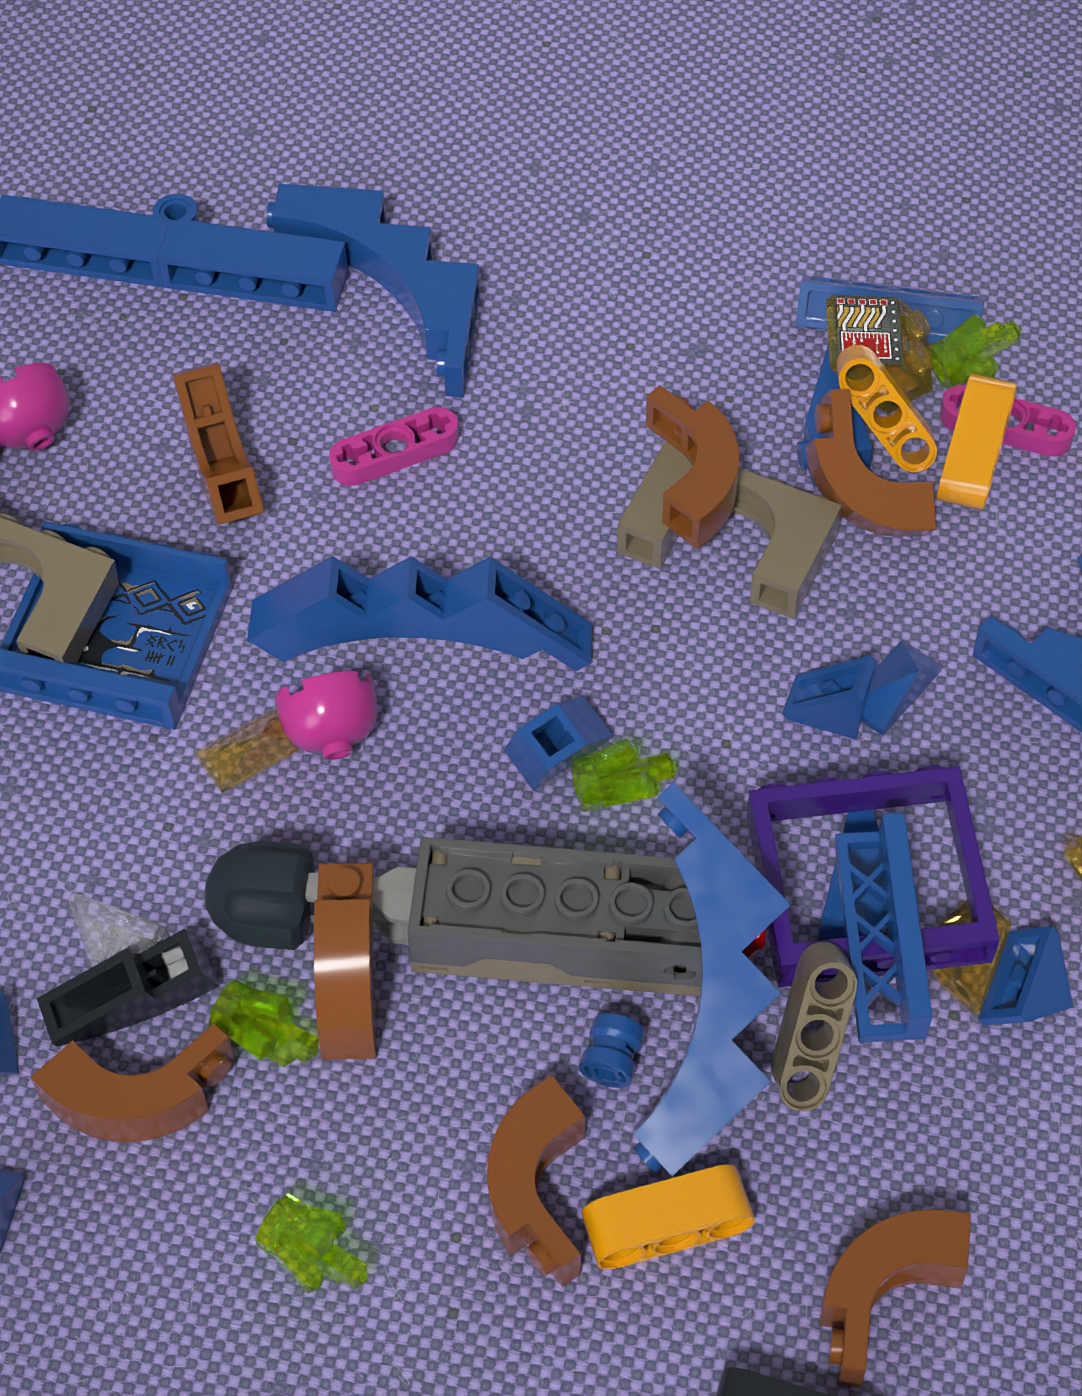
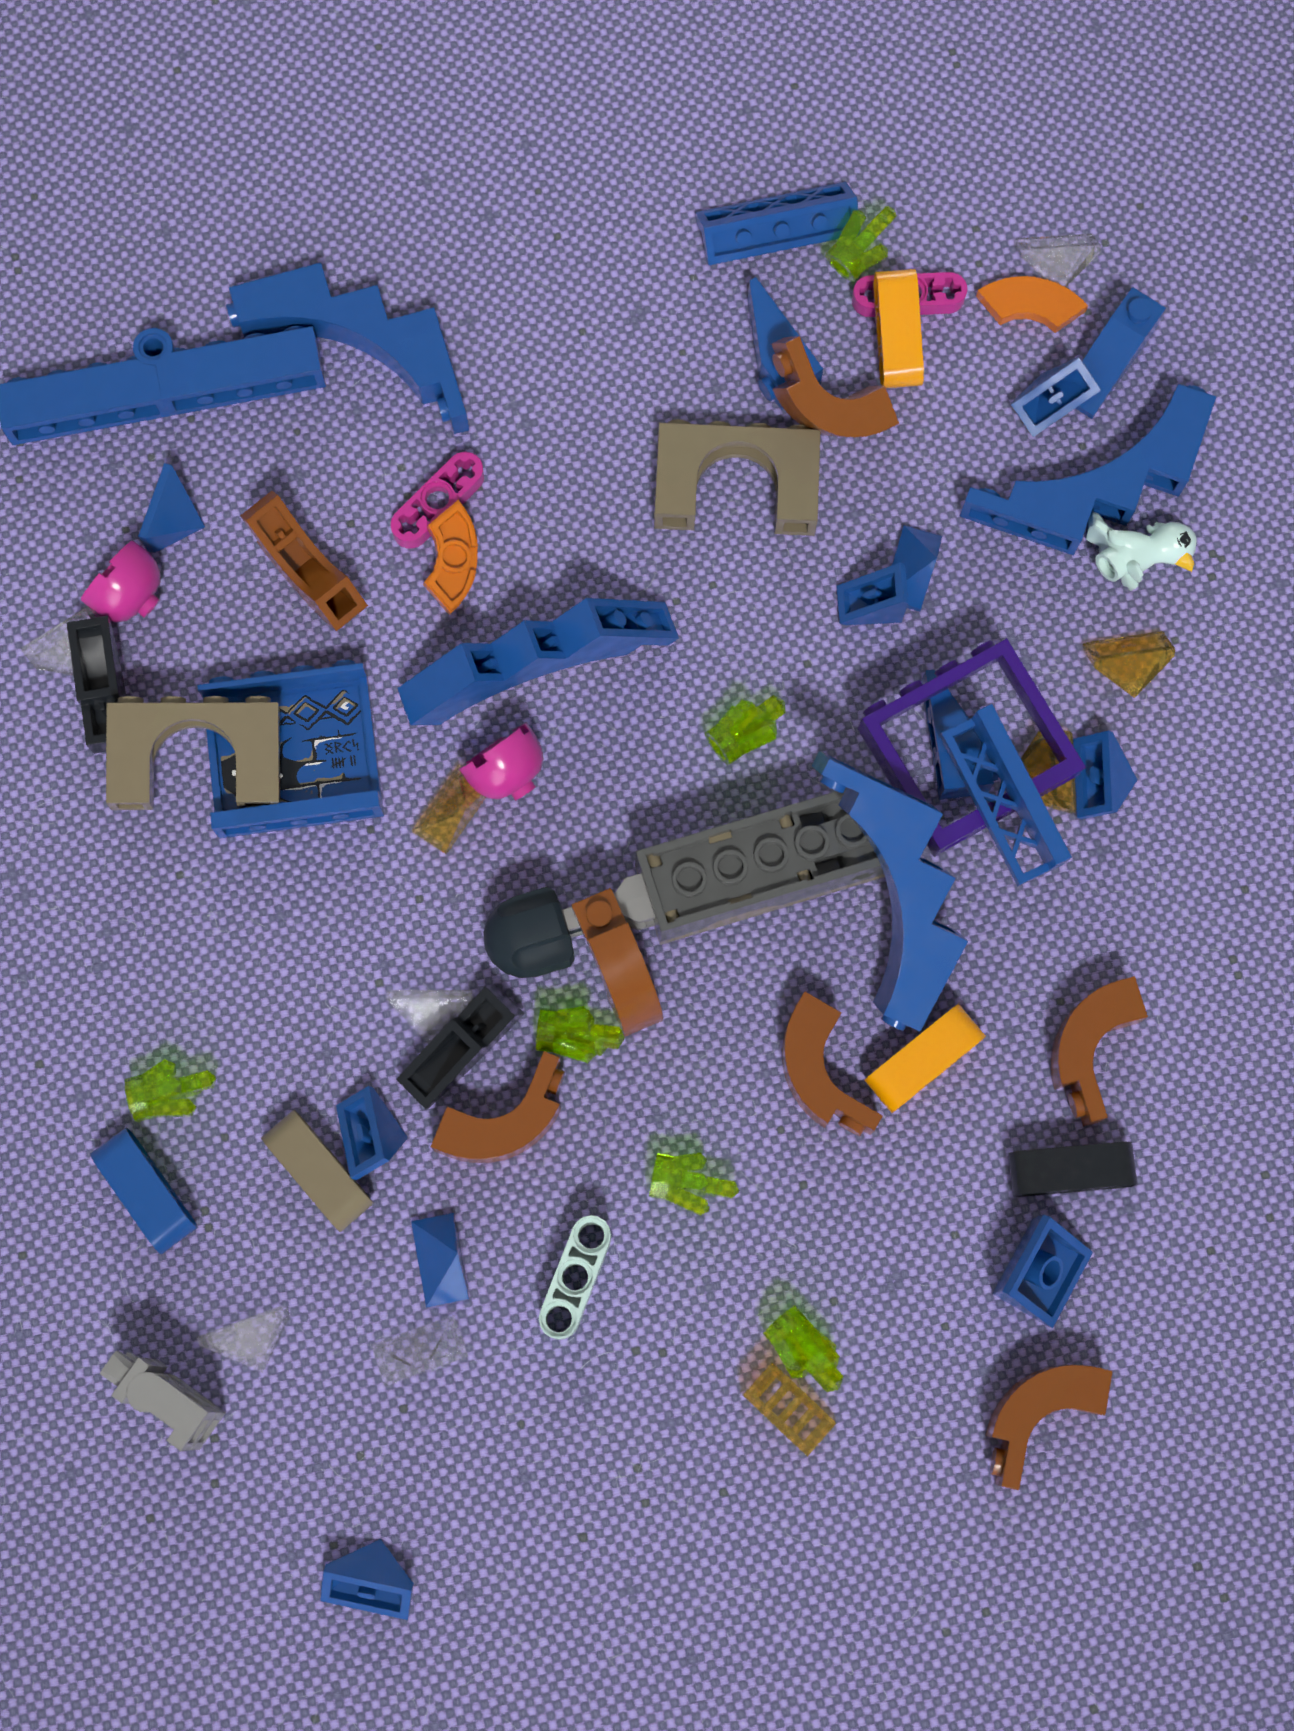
camera: 25 degrees left, 20 degrees up
(108, 365) = (169, 514): none -> blue slope
(115, 1328) = (591, 1261): none -> light aqua beam
(383, 504) = (455, 557): none -> orange tile
(554, 738) = (688, 717): blue slope -> none
(612, 1051) = (834, 954): blue wheel -> none
(705, 495) = (709, 429): dark orange arch -> none
(816, 1050) = (979, 885): dark tan beam -> none
(891, 331) = (793, 271): slope -> none
(892, 429) = (838, 343): light orange beam -> none

